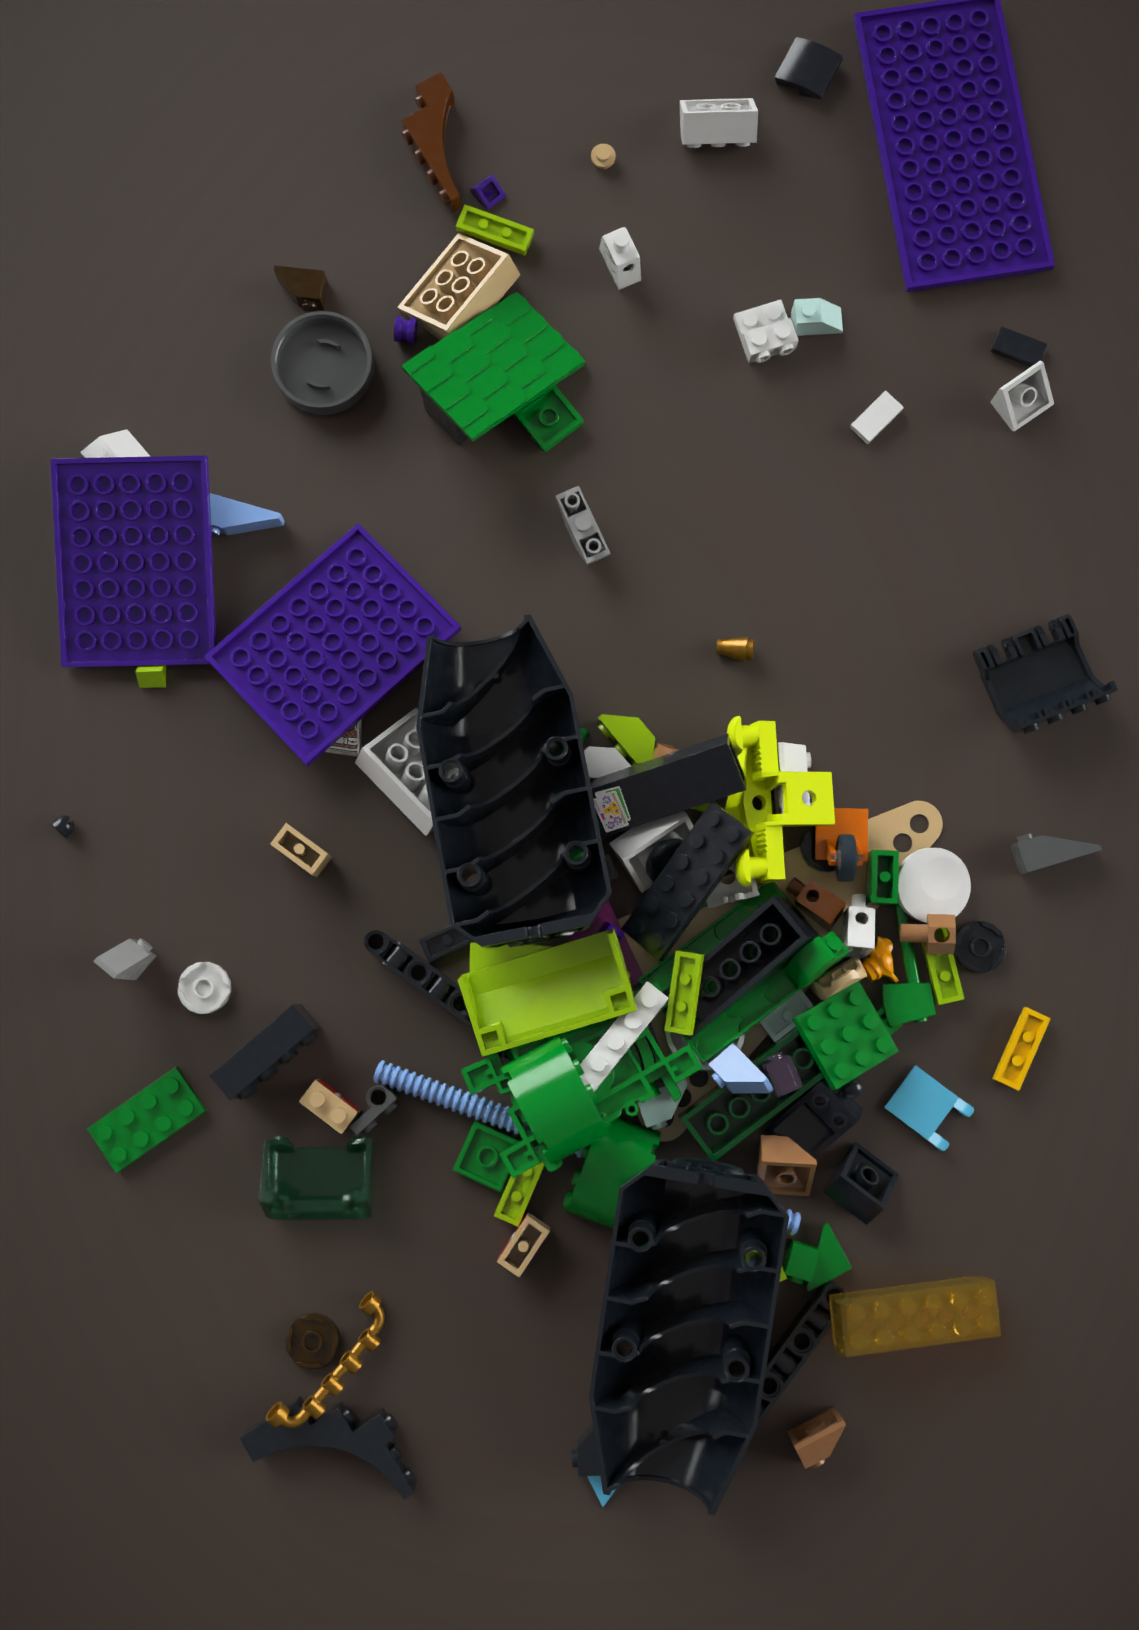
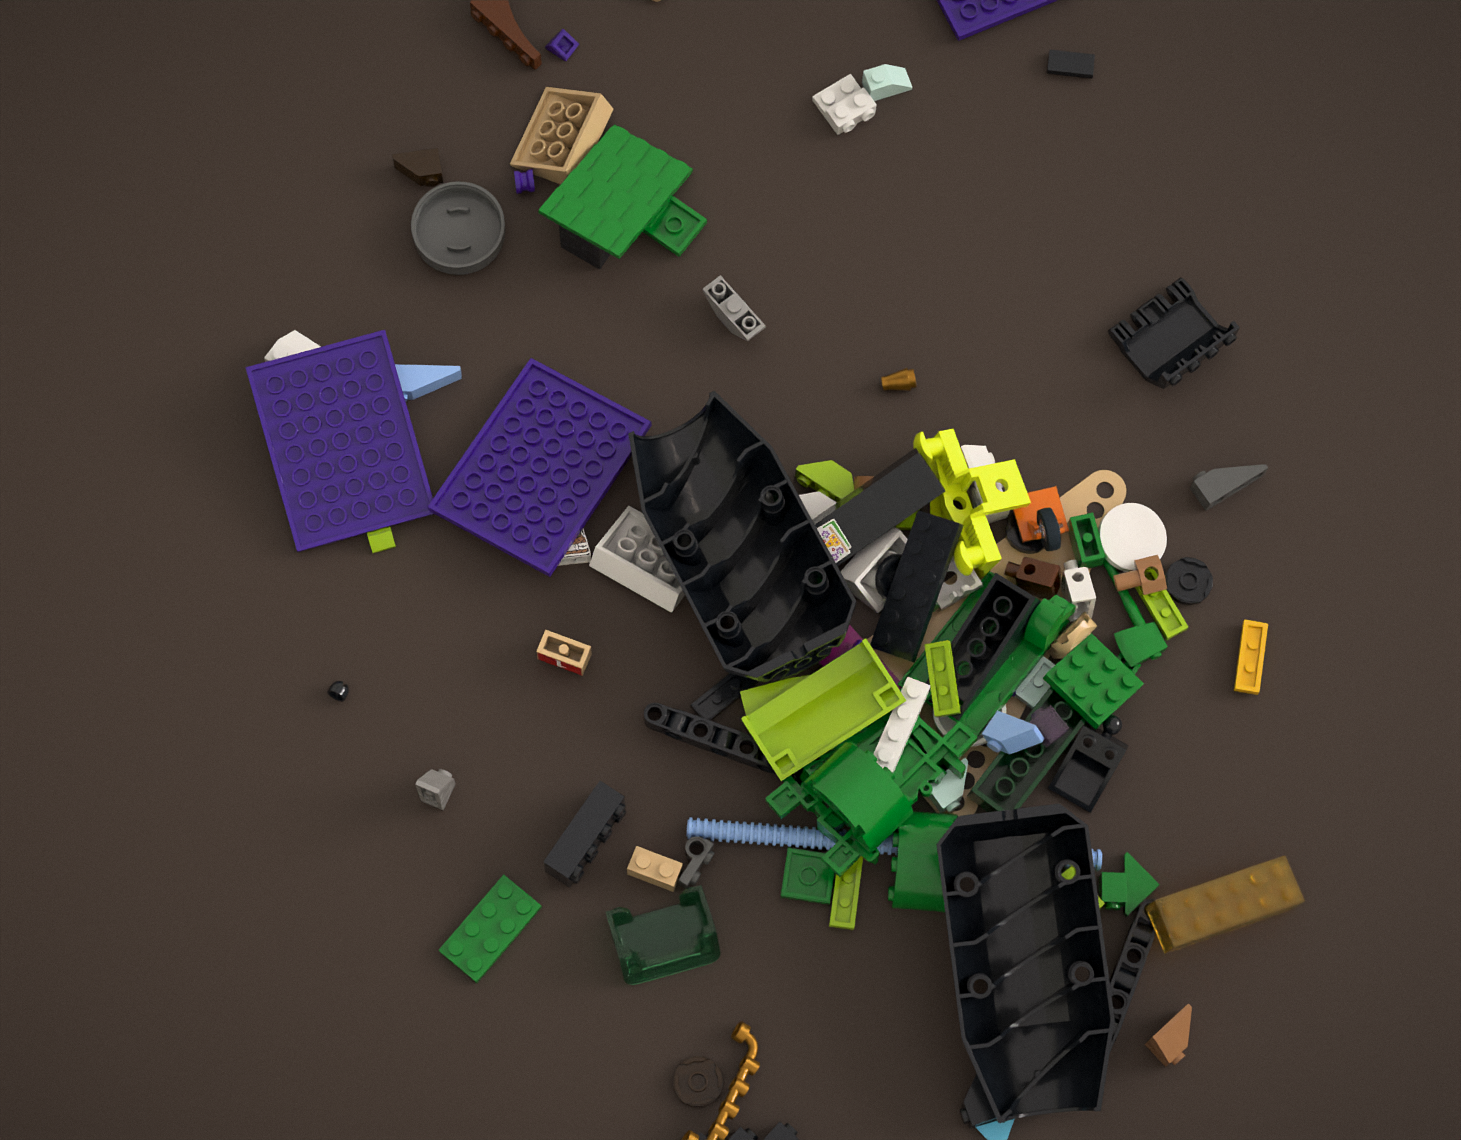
camera: 20 degrees left, 10 degrees down
(204, 987) = (508, 799): white tile -> none
(494, 230) = (578, 76): lime plate -> none
(523, 1244) = (863, 940): tan brick -> none
(619, 253) = (697, 69): white torso -> none
(785, 1166) = (1080, 802): medium nougat slope -> none
(861, 1183) = (1145, 809): black slope -> none
(876, 417) = (964, 153): white tile -> none
(880, 961) = (1106, 615): light orange animal -> none
(924, 1105) = (1181, 728): medium azure flag -> none
(1024, 397) = (1087, 104): white slope -> none

